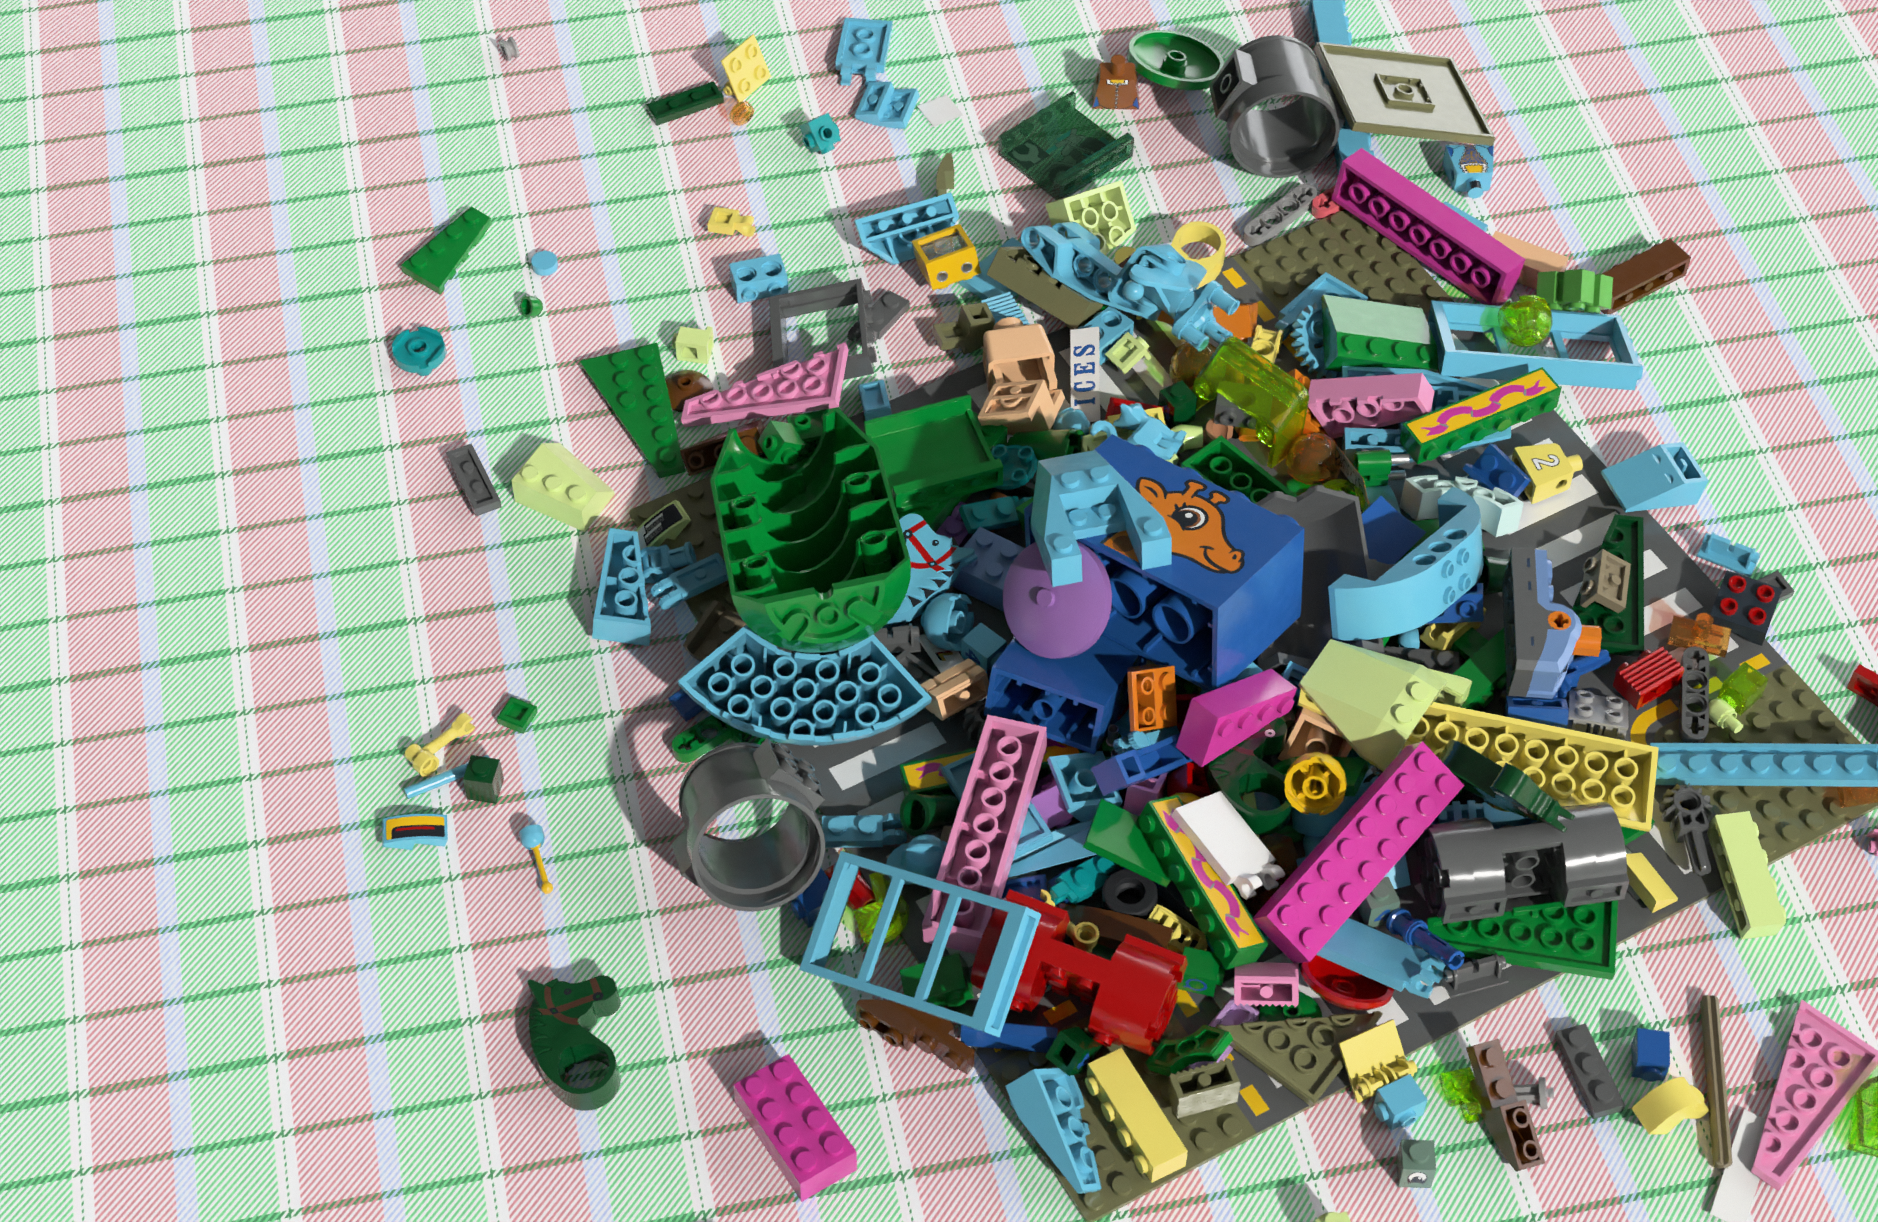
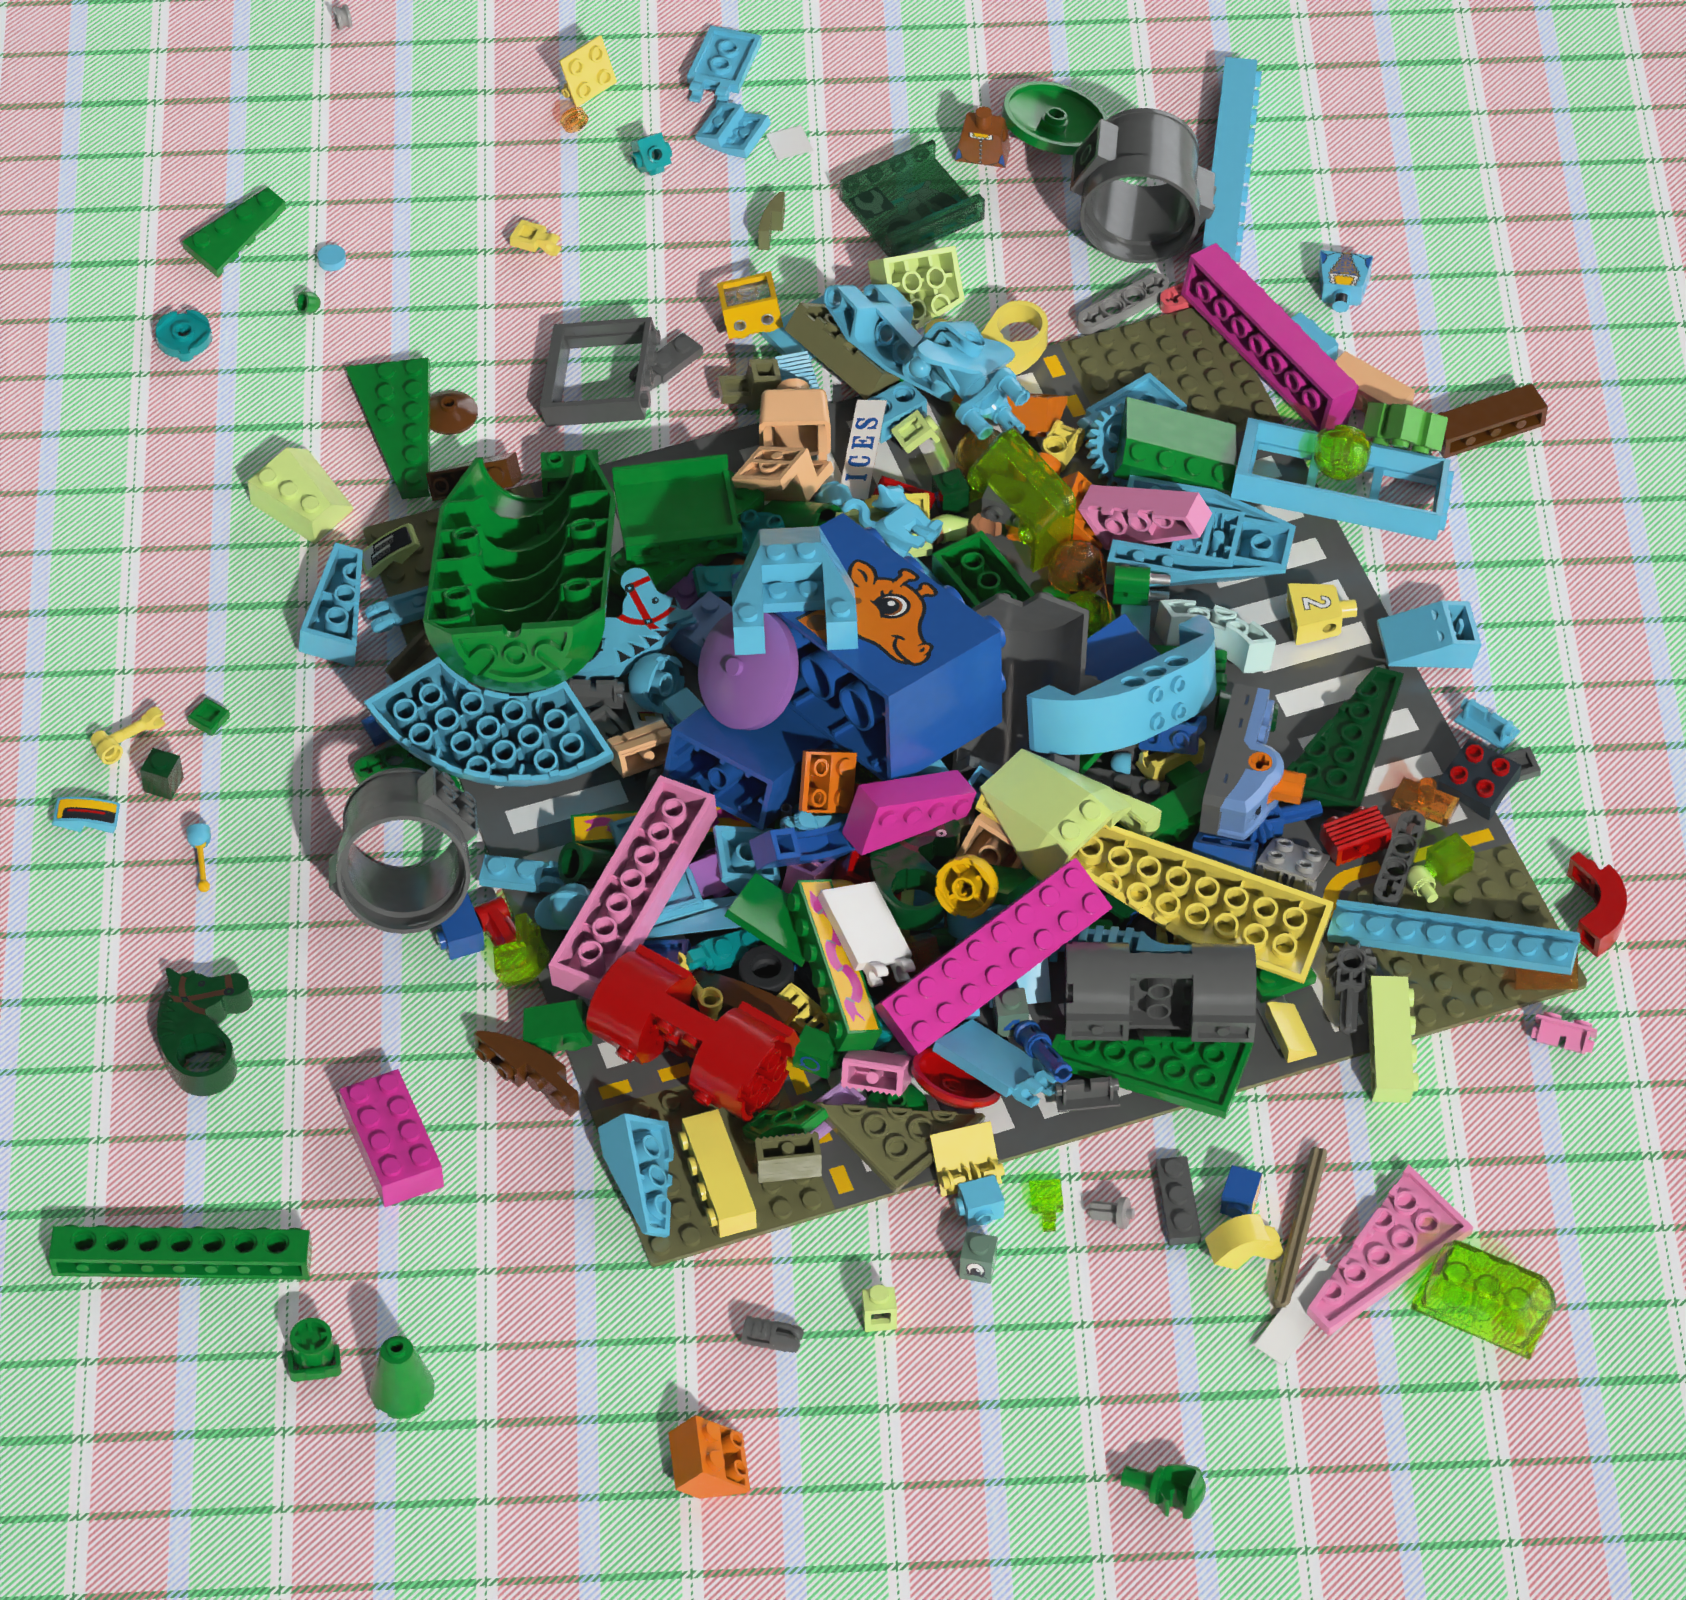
camera: 10 degrees right, 0 degrees up
(436, 781) = (114, 770): medium azure bar -> none
(473, 479) = (212, 475): dark grey plate -> none
(665, 561) = (386, 583): medium azure connector -> none
(685, 103) = (517, 101): dark green tile -> none
(693, 344) = (467, 364): yellowish green brick -> none
(758, 278) = (550, 302): medium azure brick -> none
(776, 392) = (538, 425): bright pink wing -> none
(781, 443) = (528, 479): green brick -> none
(874, 399) = (639, 446): medium azure tile -> none
(892, 231) = (699, 269): medium azure wedge -> none
(1003, 970) = (610, 1016): medium azure window -> none
(1012, 1037) = (615, 1084): blue tile -> none
(1073, 1051) = (671, 1104): dark green brick -> none
(1403, 94) = (1289, 187): tile -> none
(1479, 415) = (1254, 545): brick -> none
(1497, 470) = (1265, 607): blue bracket -> none
(1500, 1109) = (1076, 1219): reddish brown slope -> none
(1502, 786) = (1147, 911): dark green animal -> none
(1605, 581) = (1338, 732): dark tan bracket -> none

